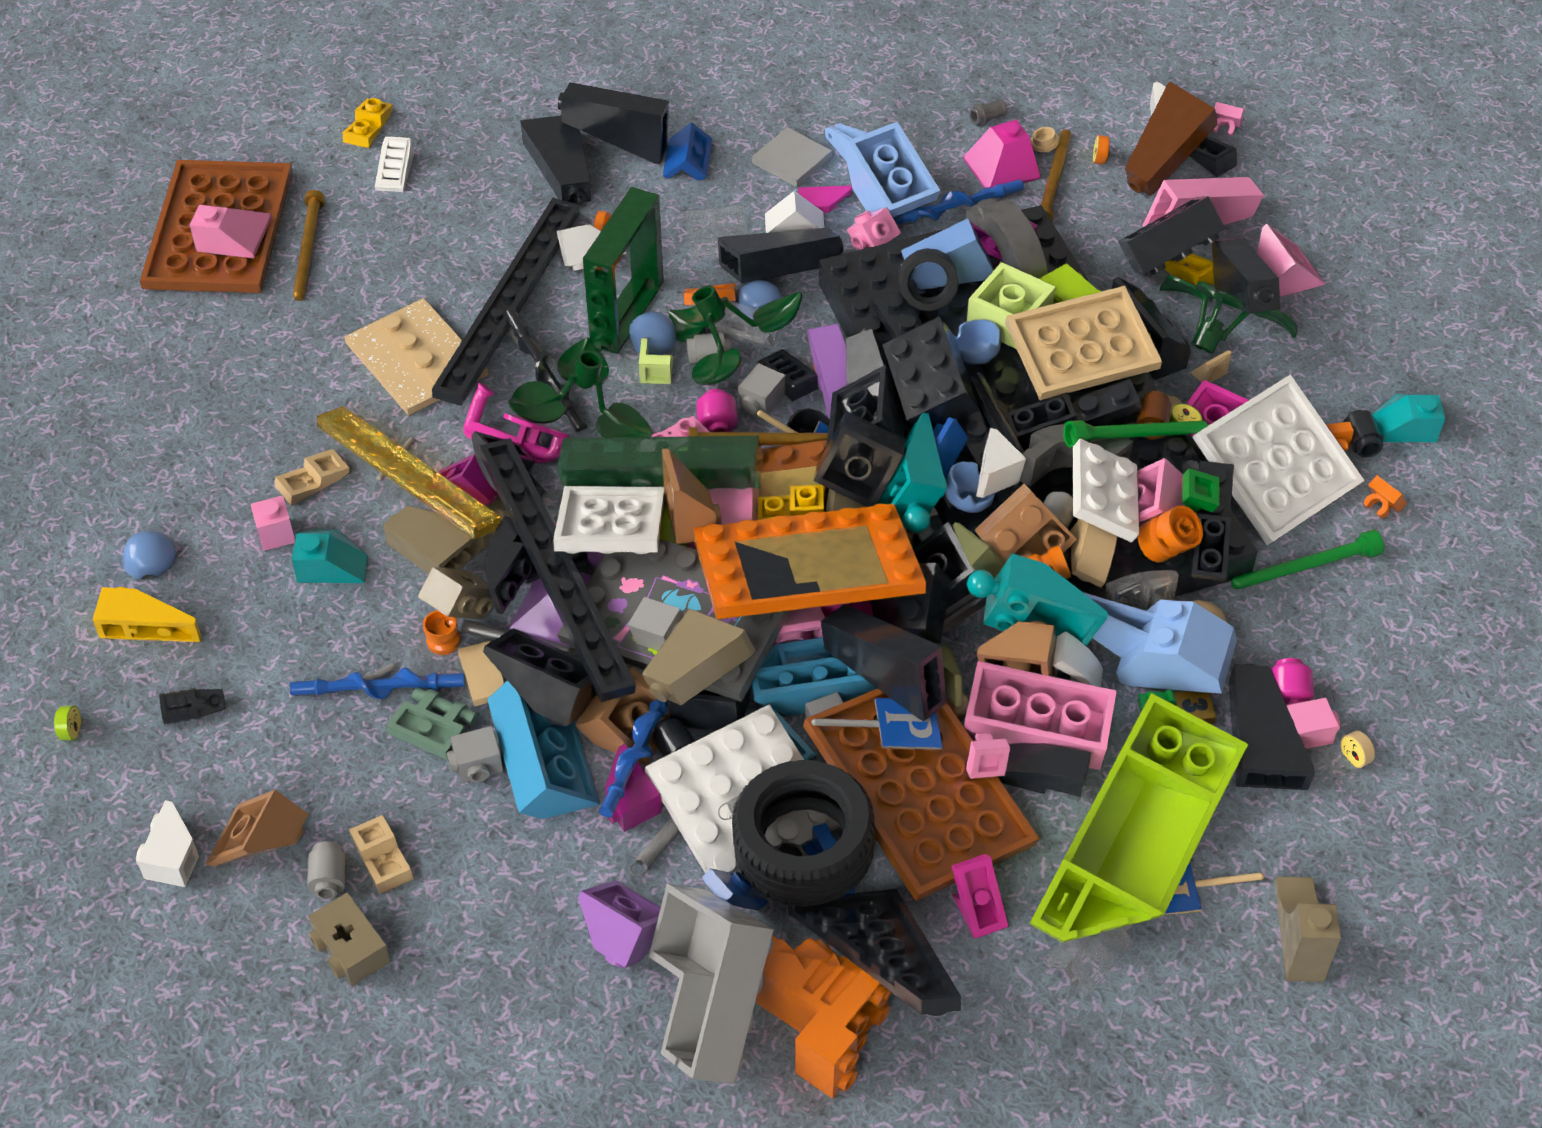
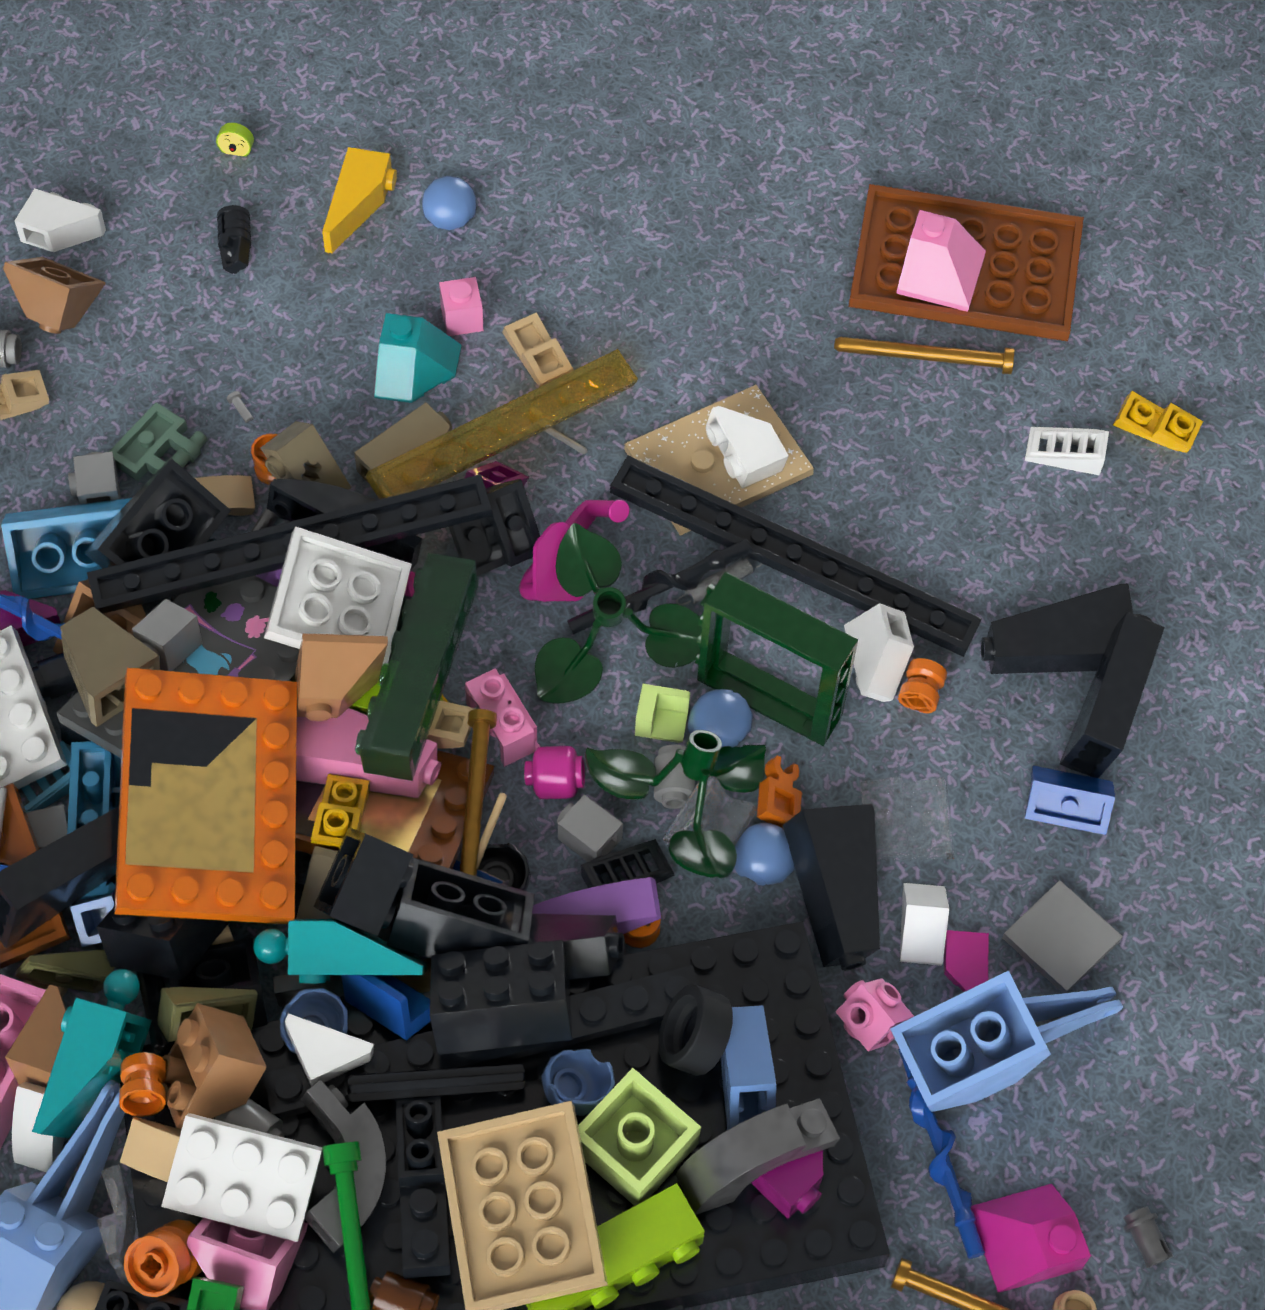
camera: 95 degrees right, 10 degrees up
(378, 687) = (216, 399): blue piece -> none
(417, 322) = (748, 445): none -> white slope

